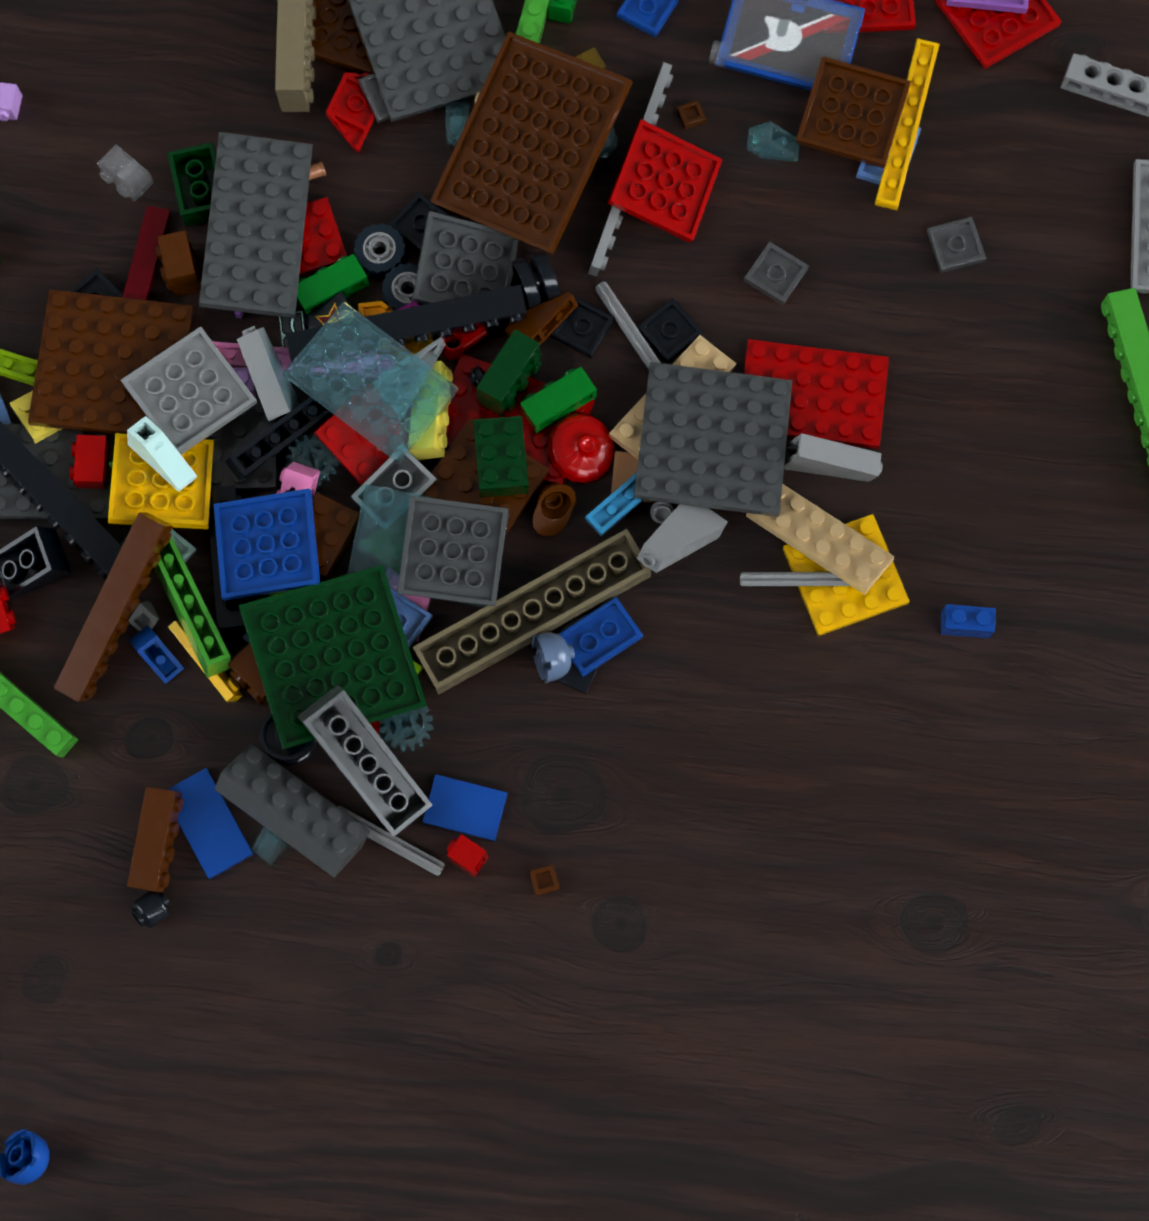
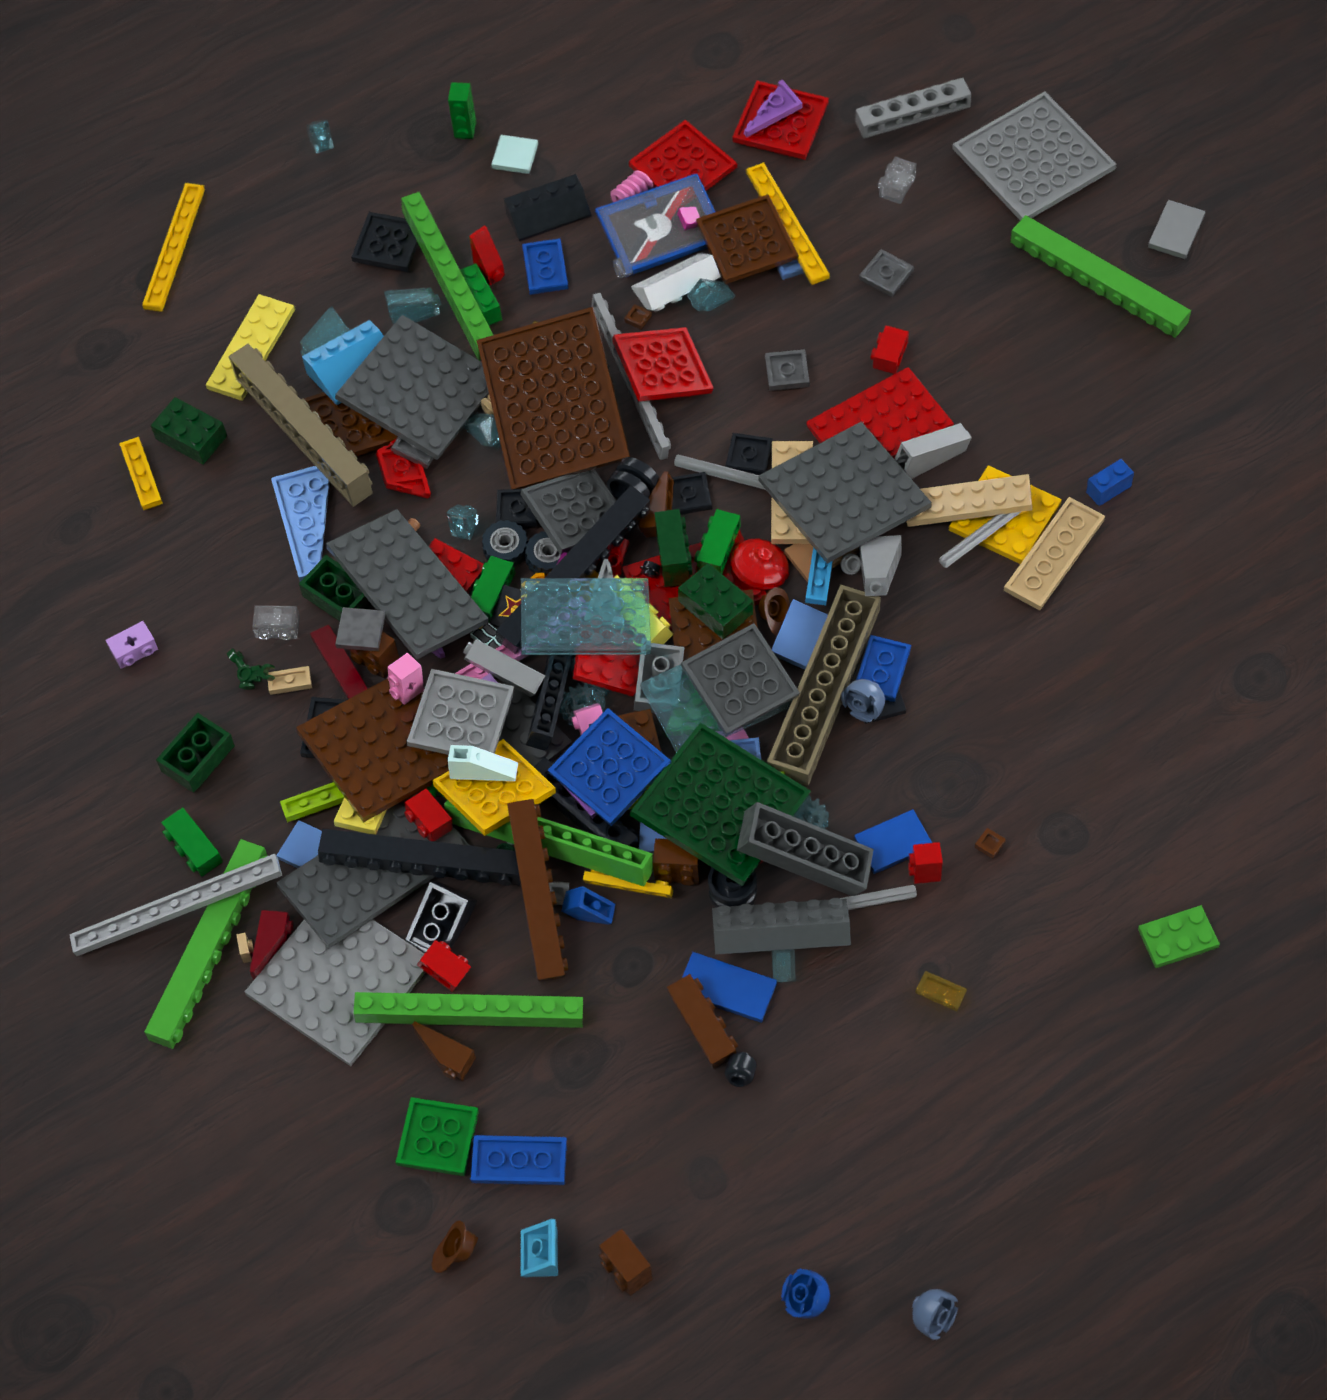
camera: 35 degrees left, 15 degrees down
(63, 201) = (249, 674): none -> dark green piece
(93, 237) = (290, 680): none -> tan plate
(167, 318) = (405, 678): none -> bright pink brick
(172, 240) = (360, 629): none -> flat silver tile
(237, 85) = (303, 508): none -> light blue wing
(362, 198) = (462, 521): none -> clear light blue slope
(380, 981) = (941, 991): none -> clear yellow plate
(555, 543) = (799, 634): none -> medium blue tile
(630, 1105) = (1178, 936): none -> bright green plate
(753, 105) = (675, 281): none -> white slope
(819, 47) = (688, 217): none -> slope
(854, 649) = (1054, 553): none -> tan plate
(887, 326) = (890, 349): none -> red brick
(1050, 156) = (897, 180): none -> clear brick

